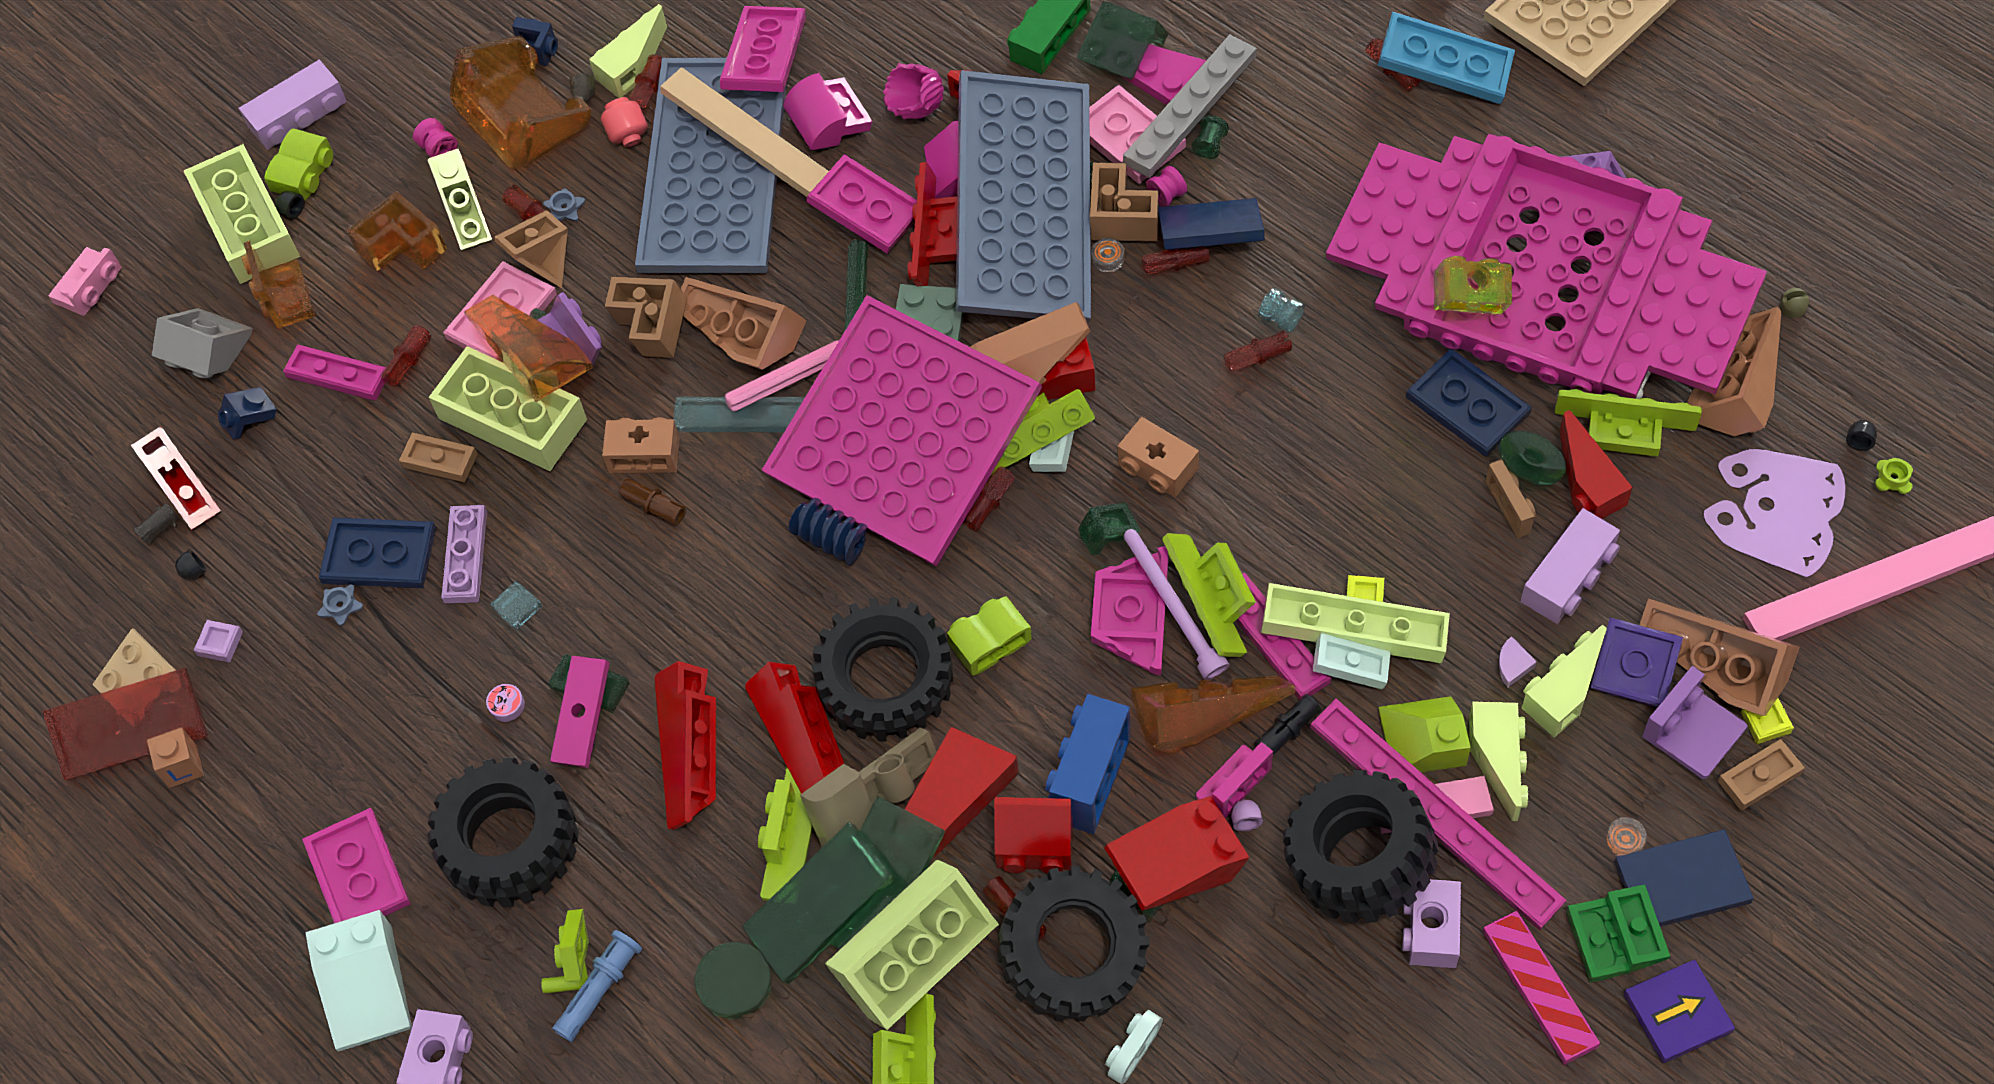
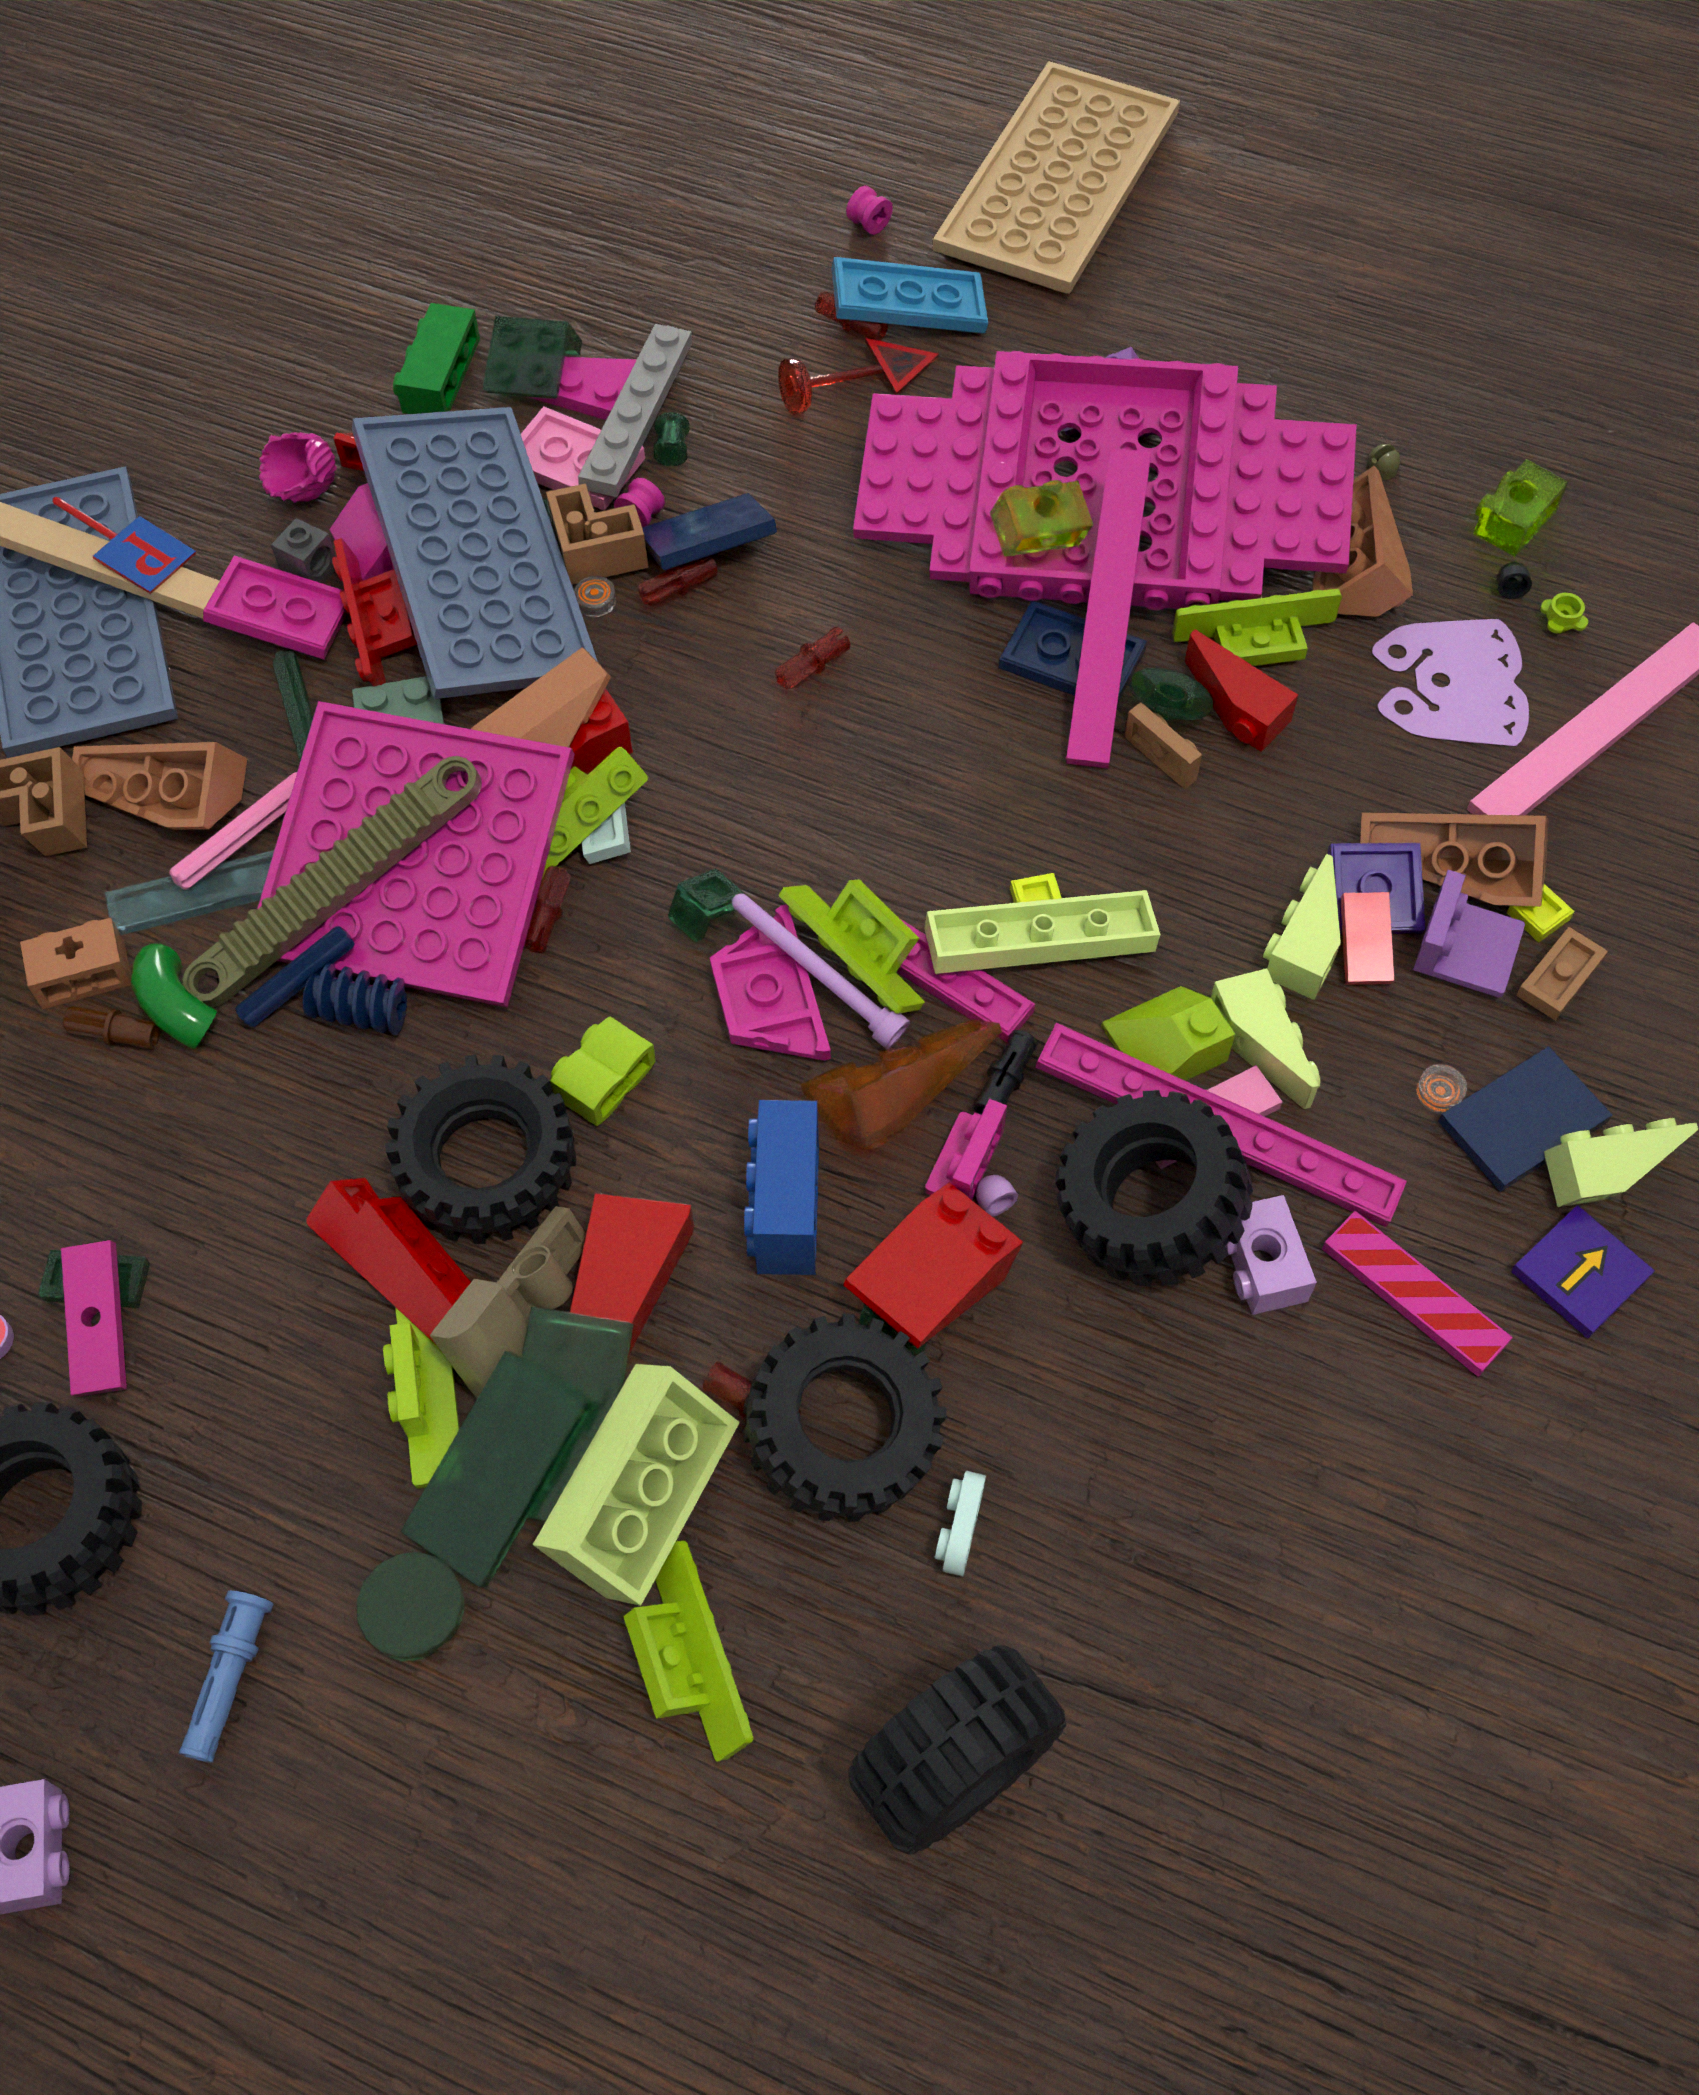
camera: 25 degrees left, 0 degrees up
(570, 955) = (175, 1645): lime plate -> none
(686, 741) = (250, 1315): red wedge -> none
(694, 490) = (164, 997): none -> green cylinder
(763, 49) = (93, 461): dark pink tile -> none
(776, 135) = (138, 552): none -> blue piece
(790, 500) = (294, 976): none -> dark blue axle
(825, 111) = (196, 512): dark pink brick -> none
(838, 435) = (332, 880): none -> olive gear
(897, 164) = (304, 552): none -> dark grey brick
(1033, 834) = (745, 1295): red slope -> none
(1158, 457) = (737, 806): nougat brick -> none
(1281, 310) = (823, 605): clear light blue wheel -> none
(1351, 661) = (1053, 976): light aqua plate -> none
(1415, 112) = (896, 362): none -> clear red piece
(1504, 373) = (1108, 608): none -> dark pink tile
(1514, 662) = (1237, 926): lavender tile -> none
(1571, 567) = (1262, 802): lavender brick -> none
(1612, 701) = (1367, 938): none -> tile
(1617, 933) = (1480, 1202): green slope -> none
(1725, 936) = (1607, 1165): none -> yellowish green slope
(1881, 388) = (1519, 507): none -> clear neon green brick

